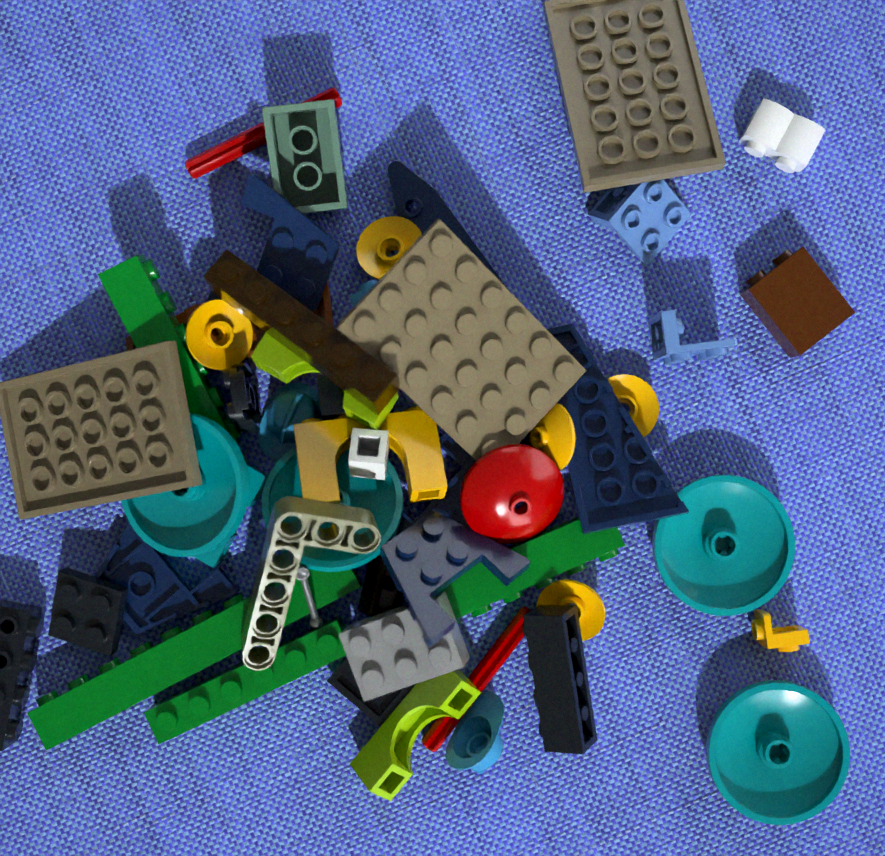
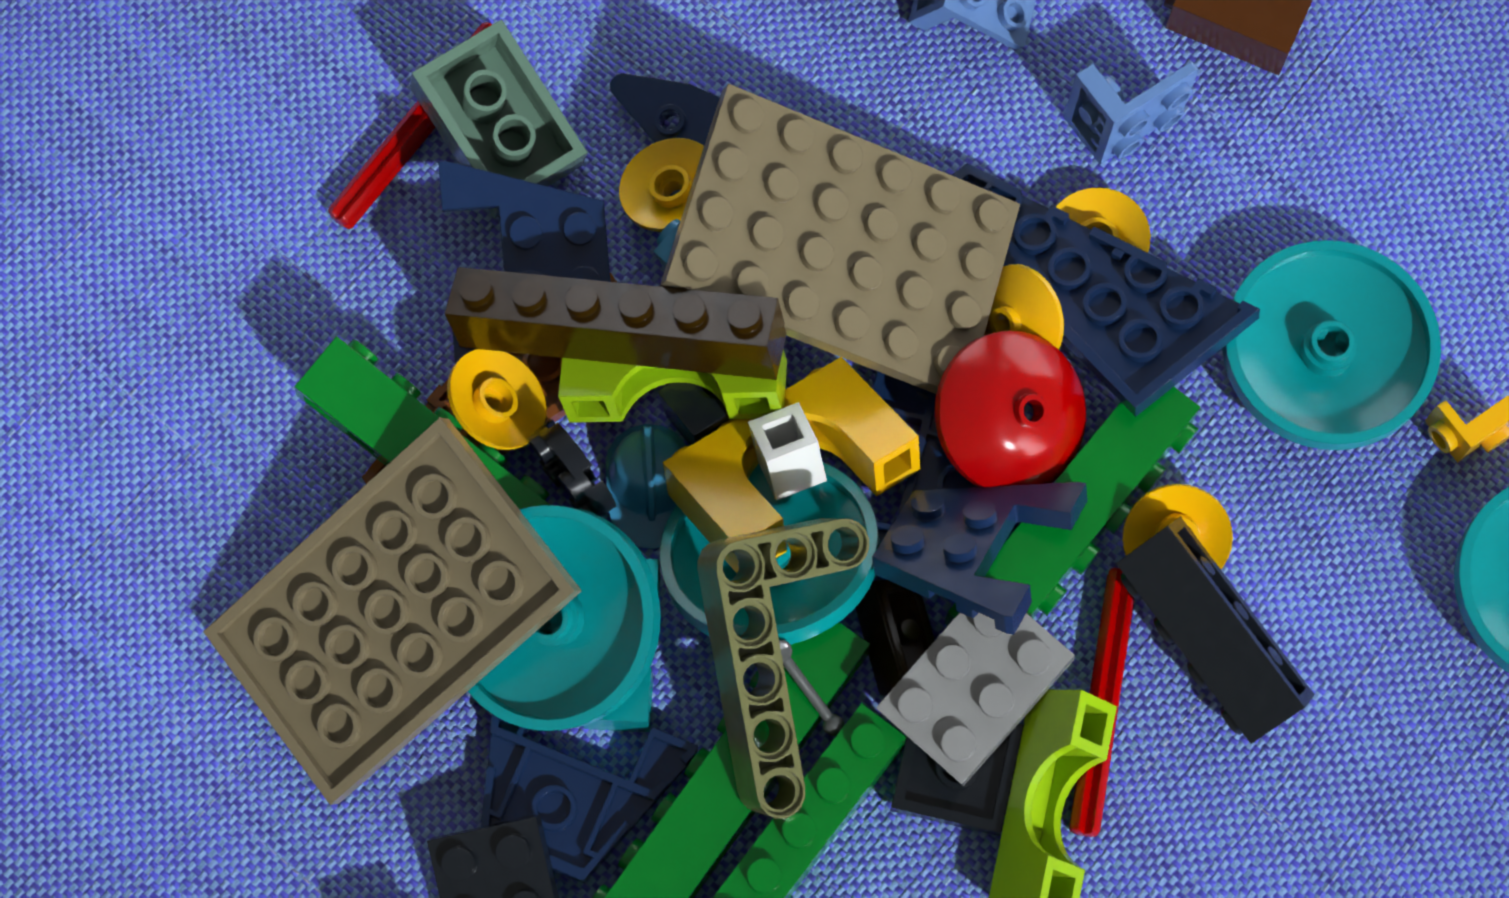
camera: 25 degrees left, 15 degrees down
(476, 737) = (1145, 773): dark azure piece -> none

